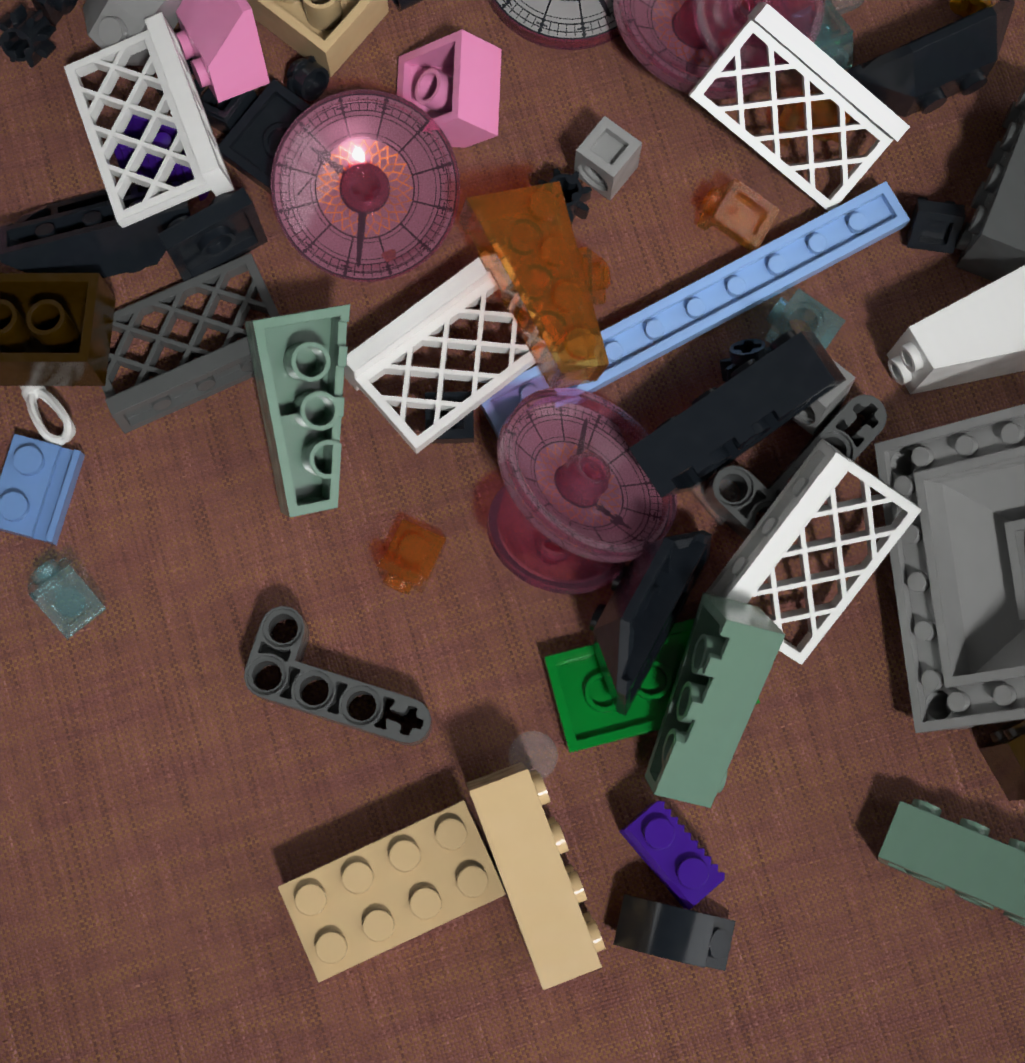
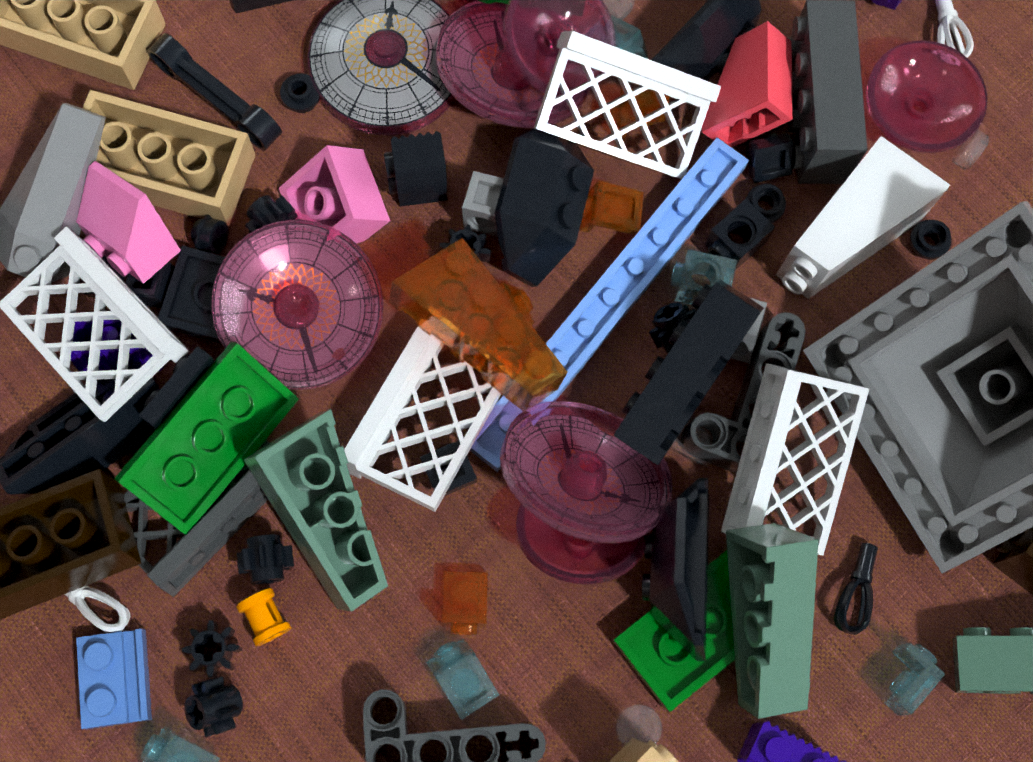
camera: 25 degrees left, 5 degrees down
(119, 555) = (213, 706): none -> black gear
(138, 487) = (204, 639): none -> black gear
(204, 489) = (263, 617): none -> light orange bush
(218, 285) = (207, 438): none -> green plate
(228, 432) = (265, 559): none -> black gear
(375, 76) = (267, 211): none -> black gear
(375, 631) = (462, 677): none -> clear light blue bracket
(547, 91) = (417, 169): none -> black brick
(663, 178) = (541, 204): none -> black wedge
(829, 833) = (913, 687): none -> clear light blue bracket
(833, 703) = (860, 576): none -> black piece
(875, 283) = (747, 223): none -> black brick
(917, 265) = (771, 195): none -> black plate
(947, 141) = (753, 87): none -> coral slope

